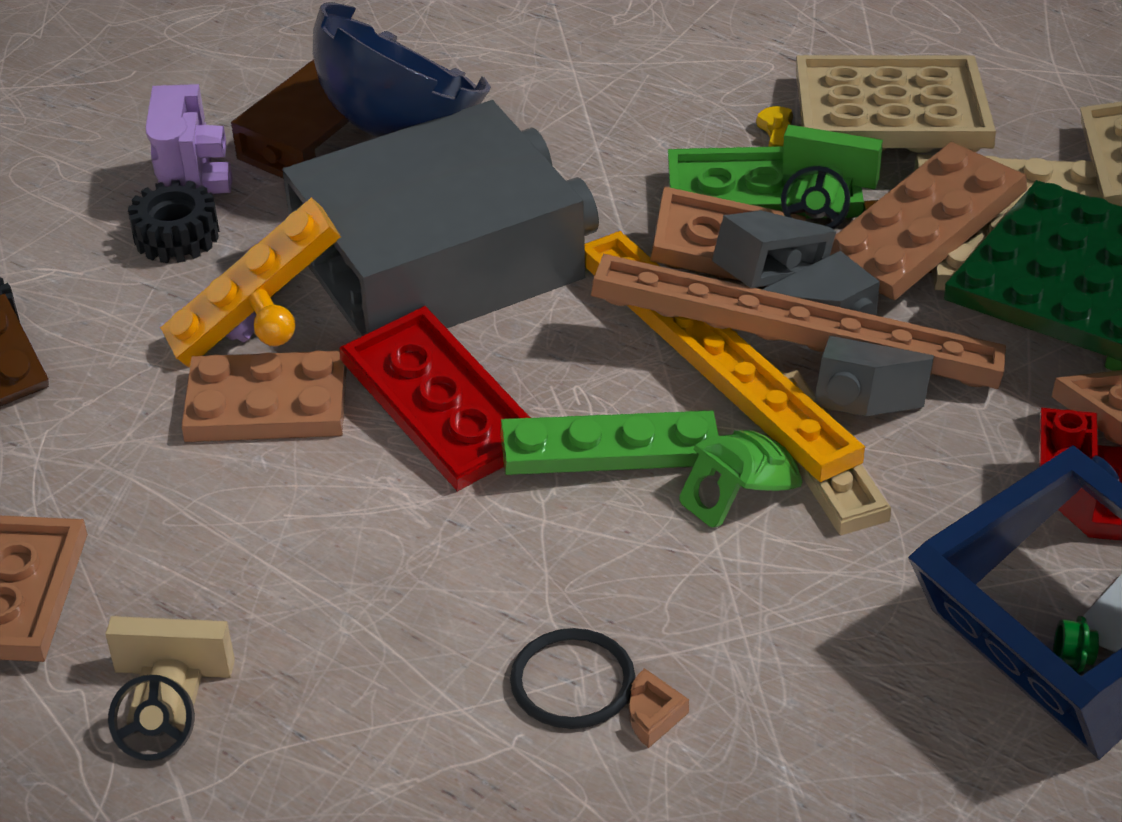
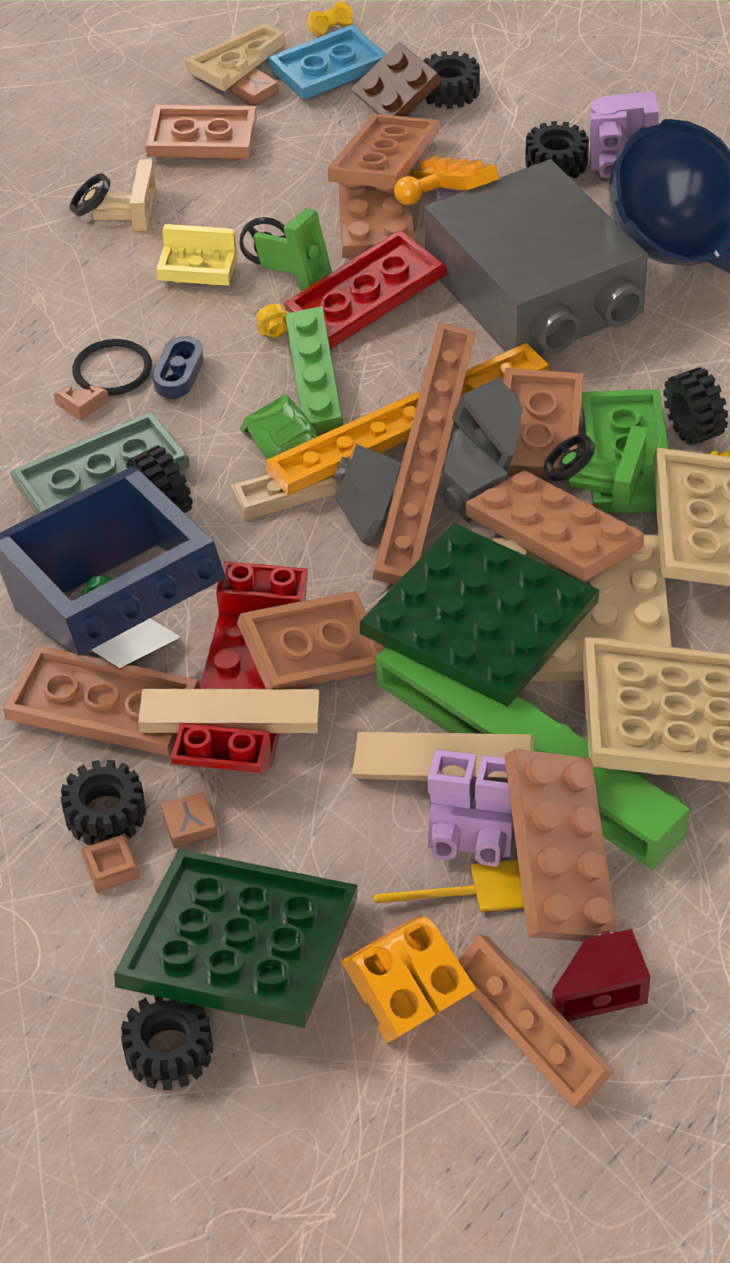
camera: 90 degrees right, 5 degrees up
(150, 365) = (383, 151): none -> nougat plate
(346, 572) = (197, 255): none -> light yellow bracket
(387, 451) = (297, 252): none -> bright green piece
(498, 488) = (272, 320): none -> yellow plate
(596, 586) = (178, 367): none -> dark blue plate
(703, 99) = (695, 406): none -> black tyre
(821, 667) = (92, 461): none -> sand green plate
(875, 571) = (164, 474): none -> black tyre

